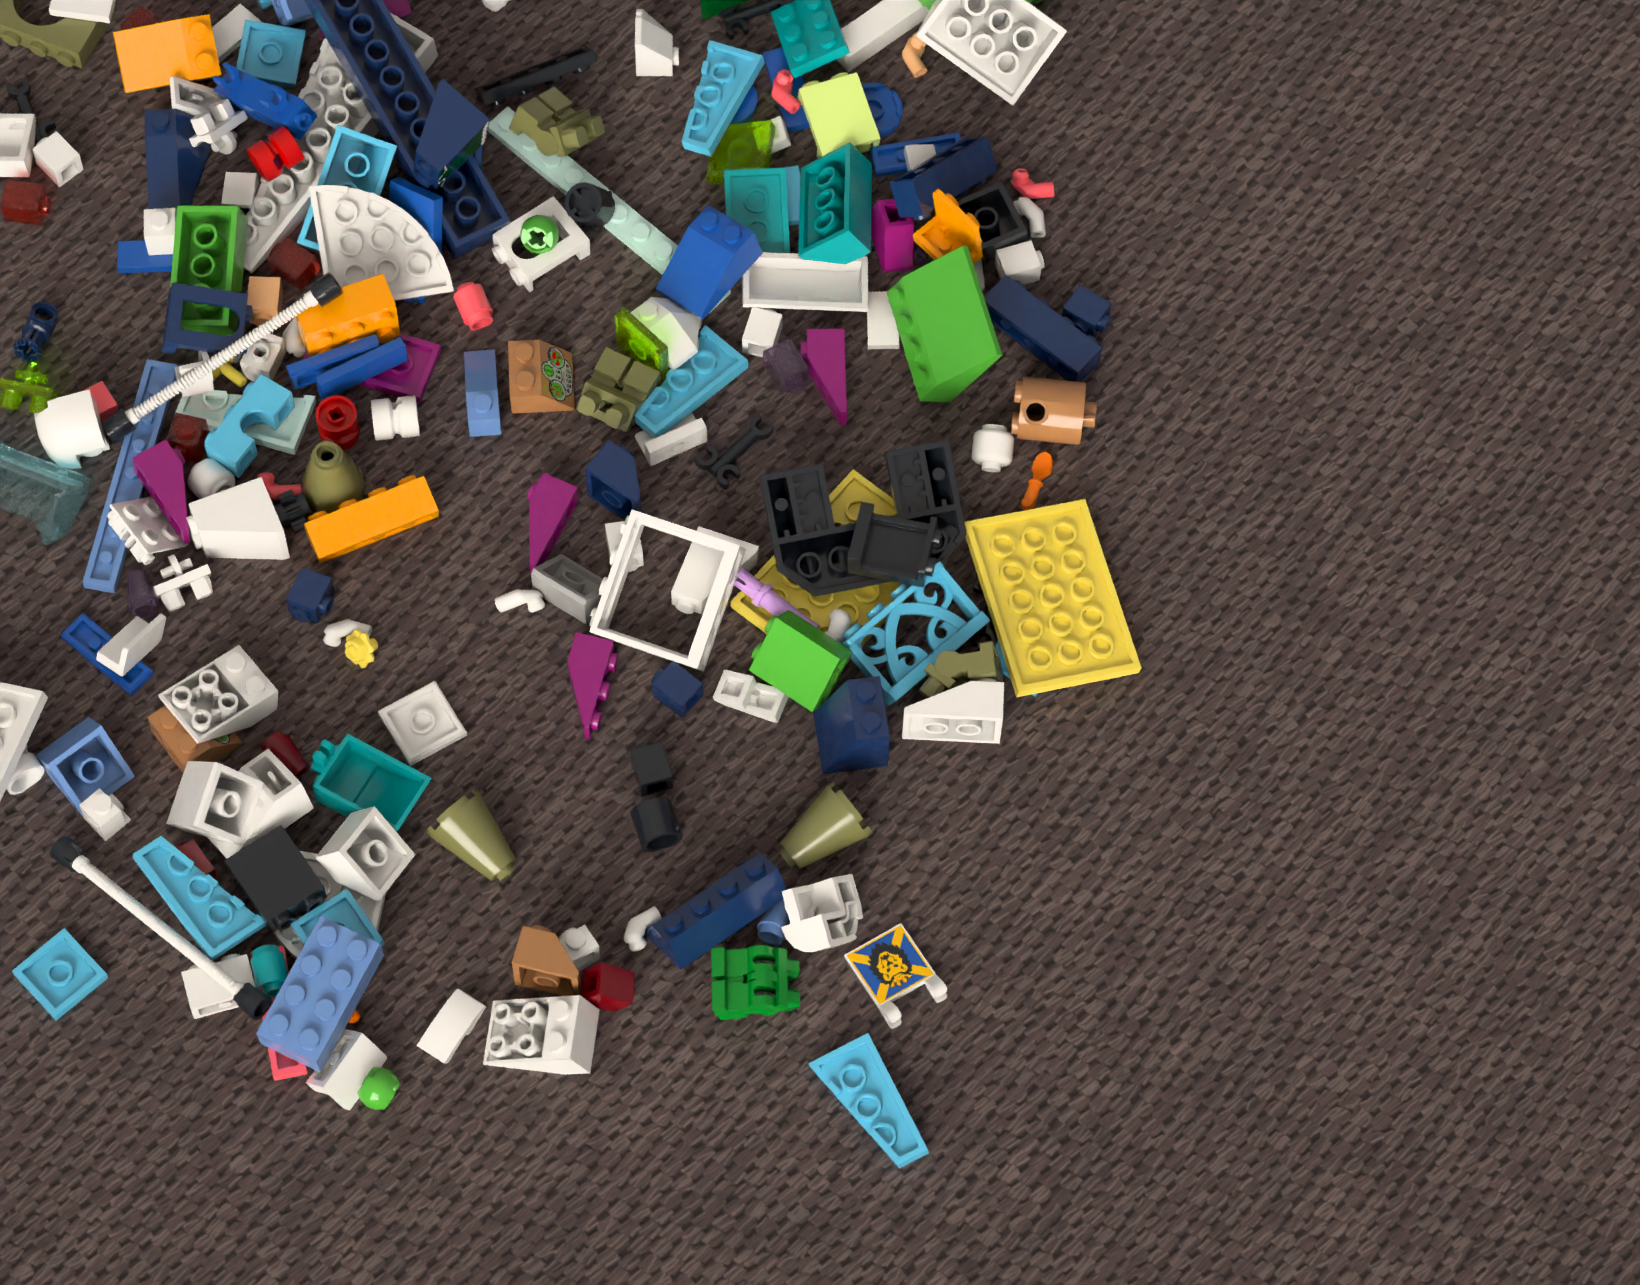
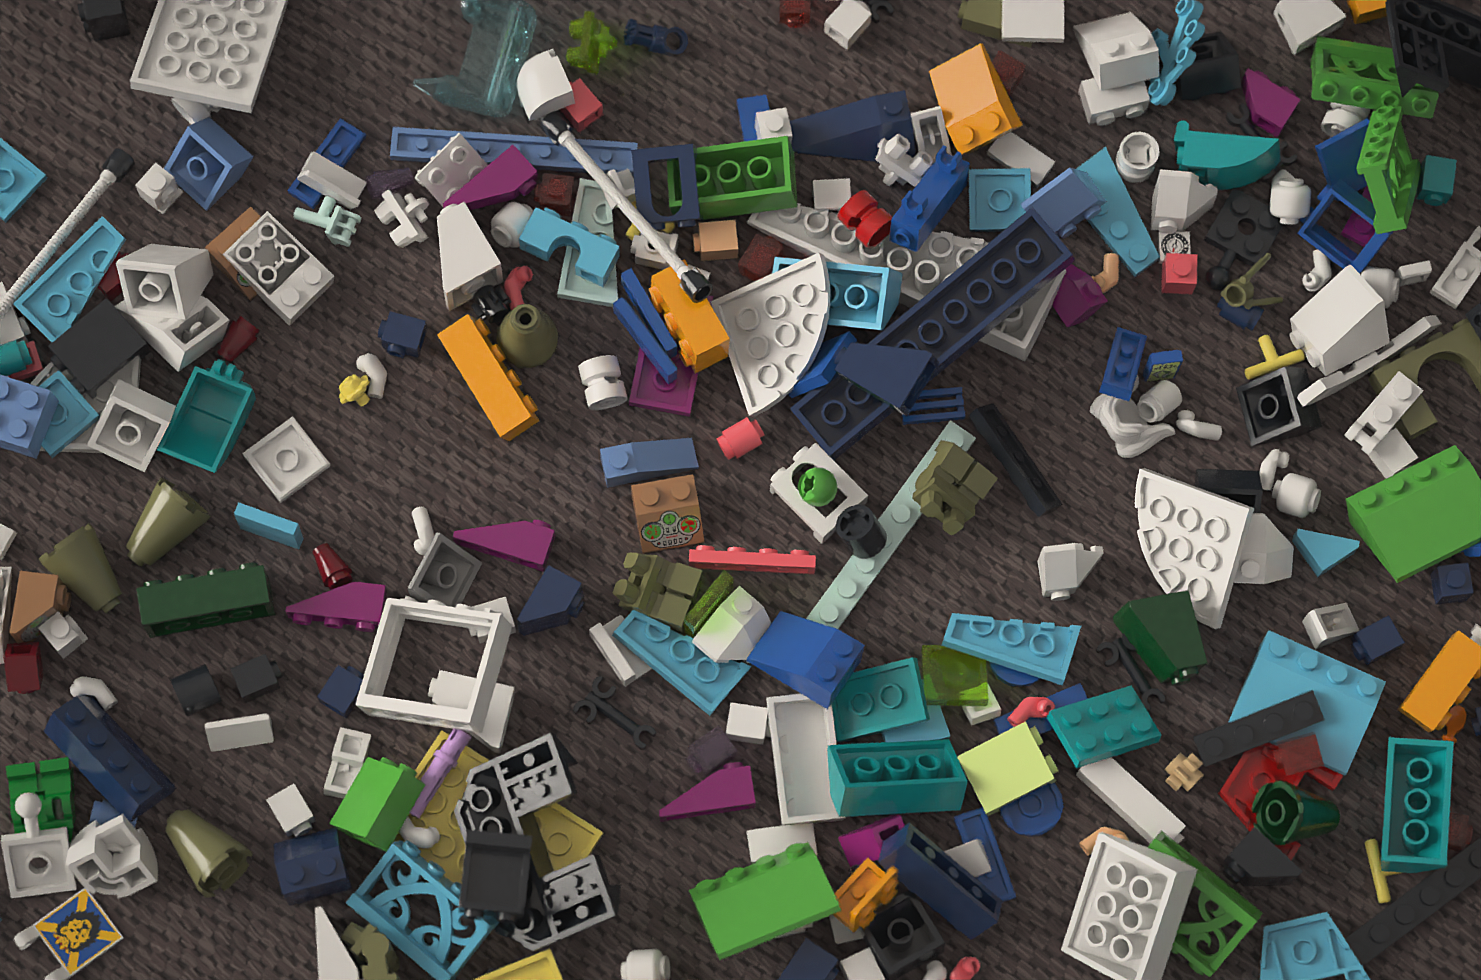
camera: 80 degrees right, 10 degrees up
(178, 648) = (337, 227): none -> light aqua arm
(338, 421) = (588, 329): red wheel -> none
(496, 733) = (268, 525): none -> medium azure tile
(501, 917) = (84, 569): none -> olive cone
(545, 688) = (331, 567): none -> dark red cone
(564, 800) = (205, 600): none -> dark green brick
(601, 299) = (765, 561): none -> coral plate
(705, 791) = (239, 732): none -> white slope
(794, 748) = (291, 811): none -> white brick
(802, 971) = (23, 847): none -> white plate

